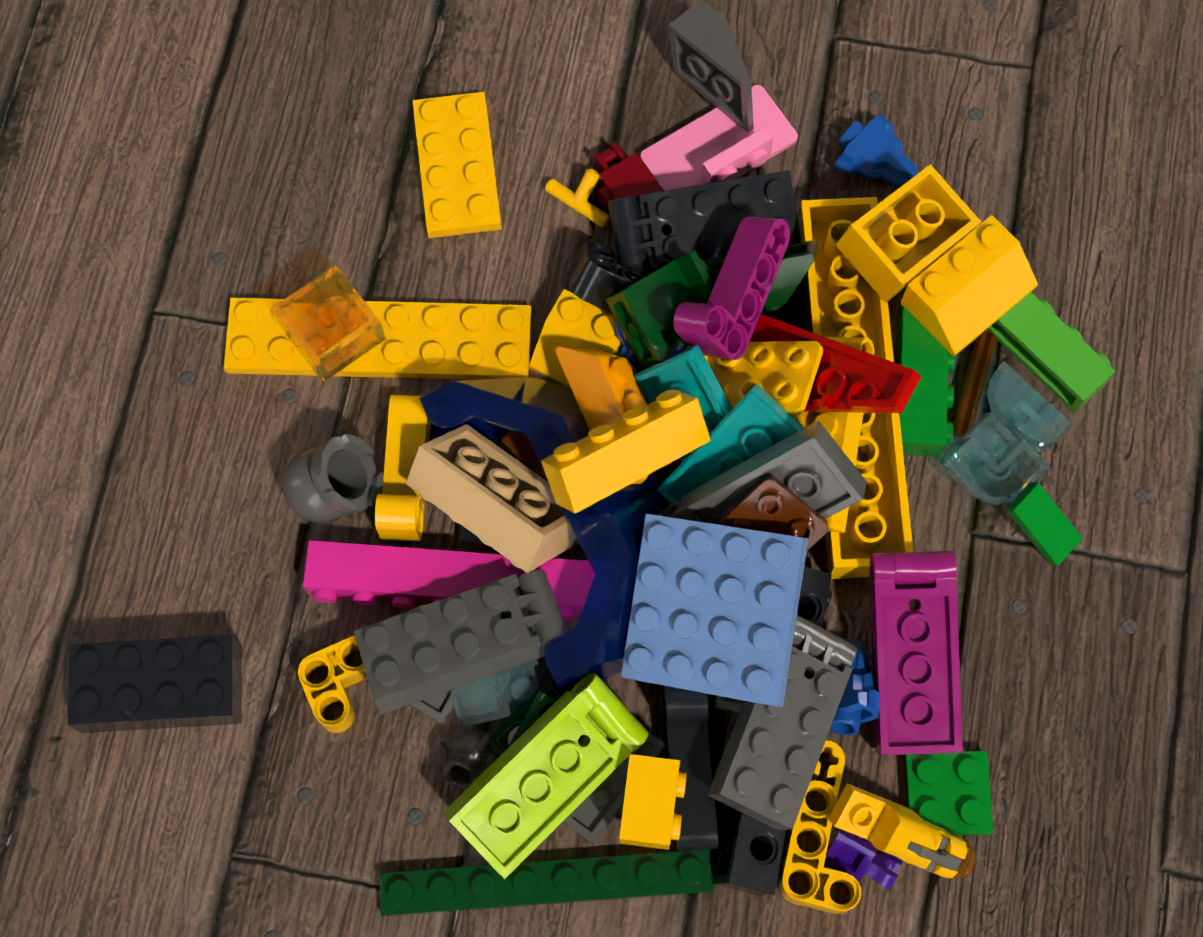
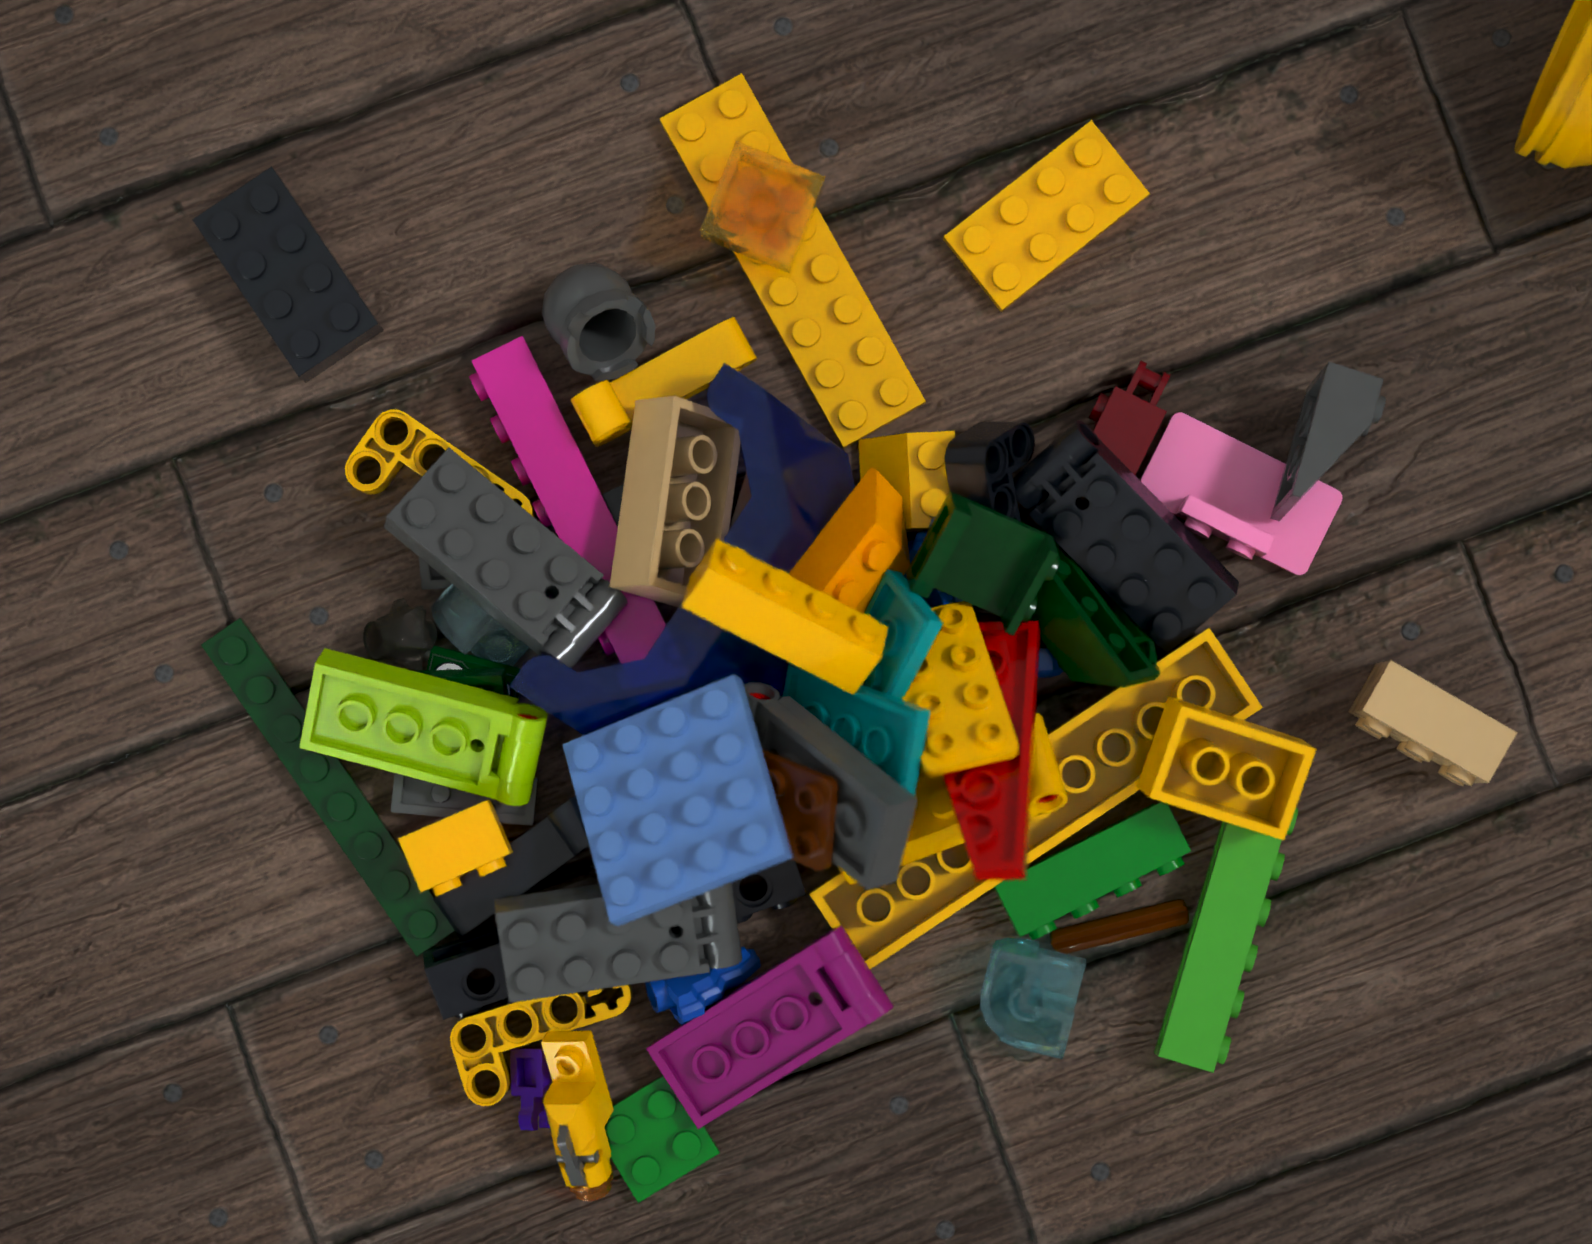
camera: 55 degrees right, 15 degrees up
(579, 199) = (1083, 376): yellow piece -> none
(731, 314) = (1037, 628): magenta beam -> none
(875, 153) = (1332, 675): blue rock -> none
(950, 103) = (1431, 724): none -> tan brick
(970, 286) = (1213, 868): yellow slope -> none
(1025, 409) = (1114, 999): clear light blue brick -> none
(1044, 523) = (997, 1085): green tile -> none

